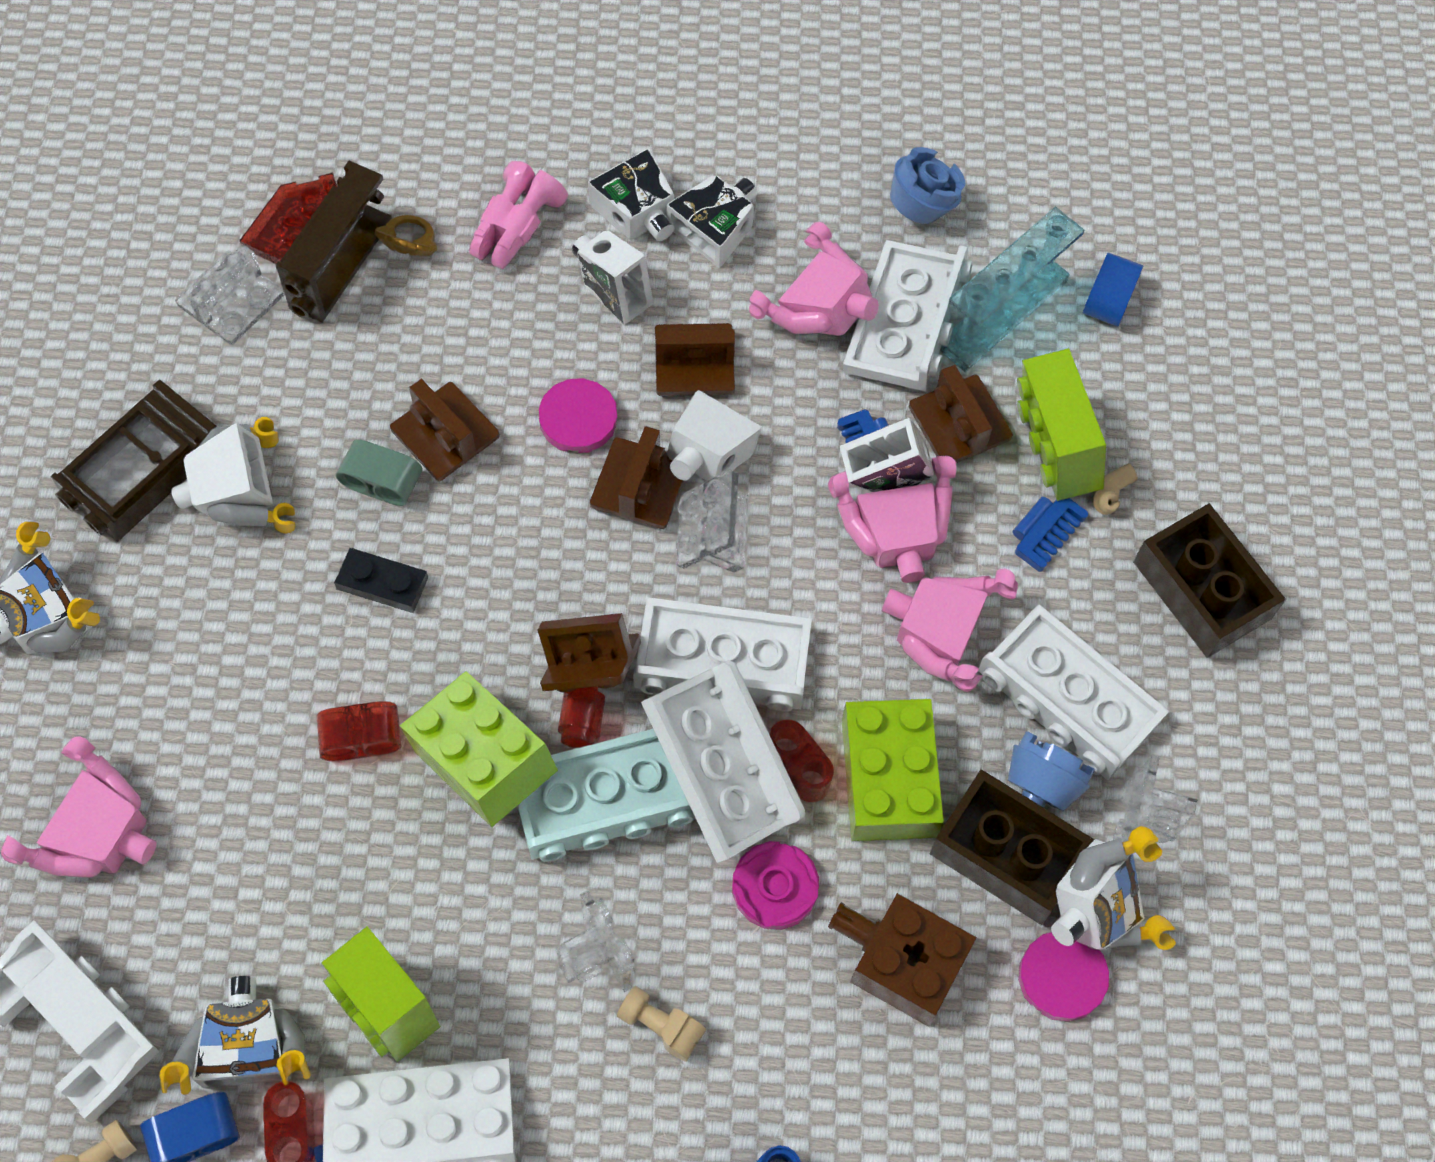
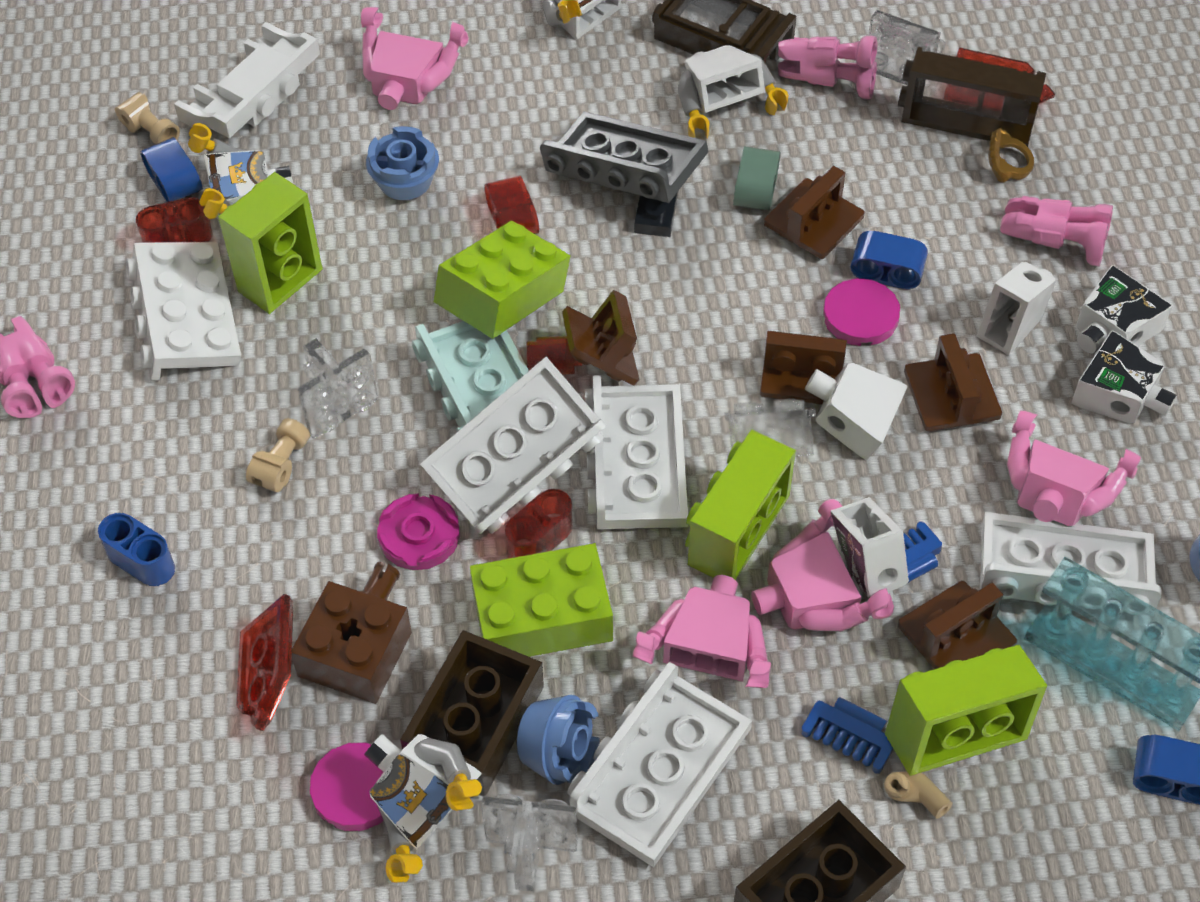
camera: 85 degrees right, 10 degrees down
(230, 366) = (818, 62): none -> bright pink piece
(268, 838) = (402, 163): none -> medium blue cone
(320, 596) = (624, 156): none -> dark grey bracket
(522, 373) = (889, 259): none -> blue beam
(818, 564) = (739, 505): none -> lime brick
(932, 1049) = (265, 662): none -> clear red tile

